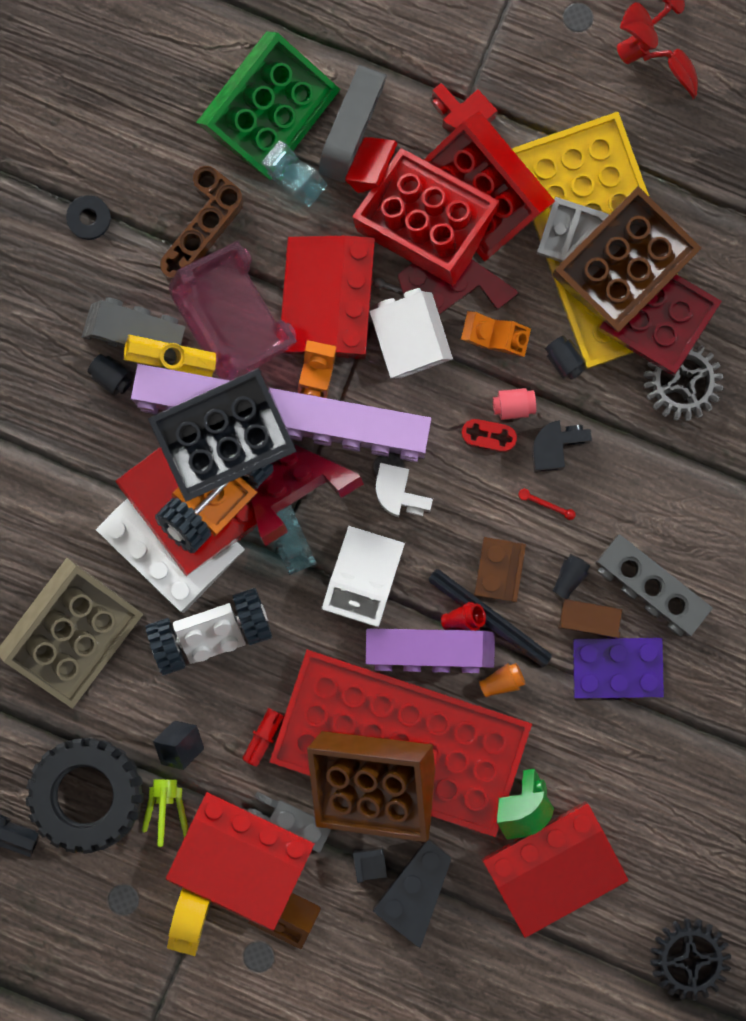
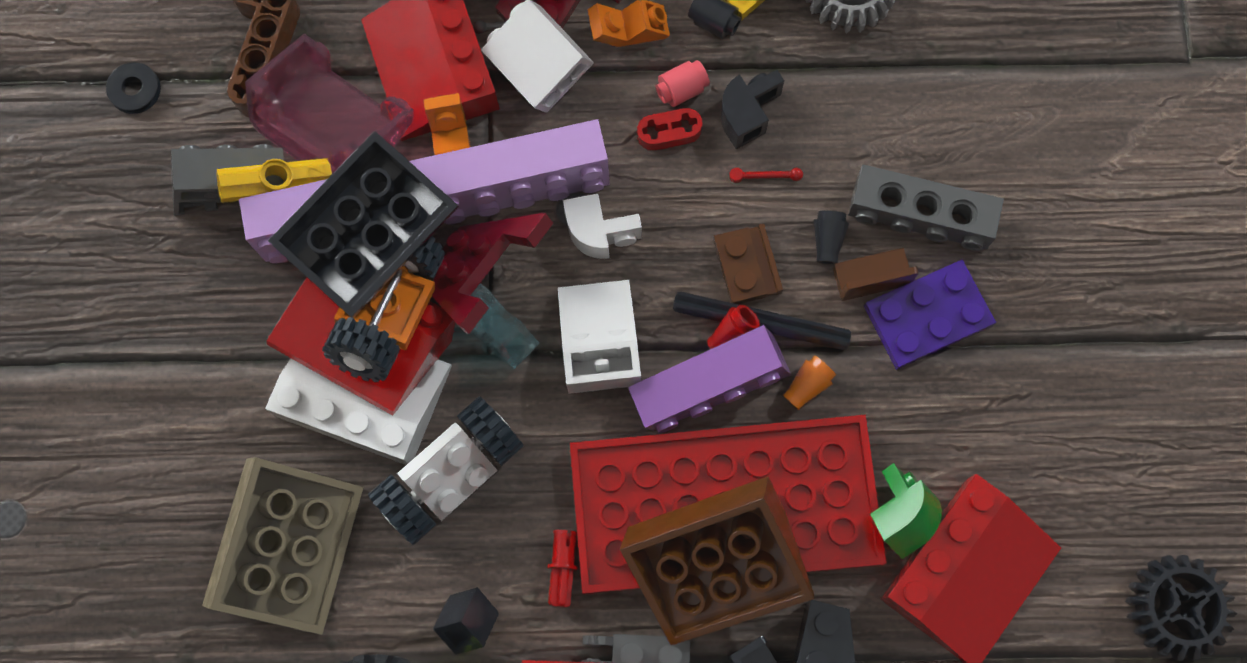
camera: 25 degrees left, 10 degrees down
(110, 374) = (219, 237): black brick -> none

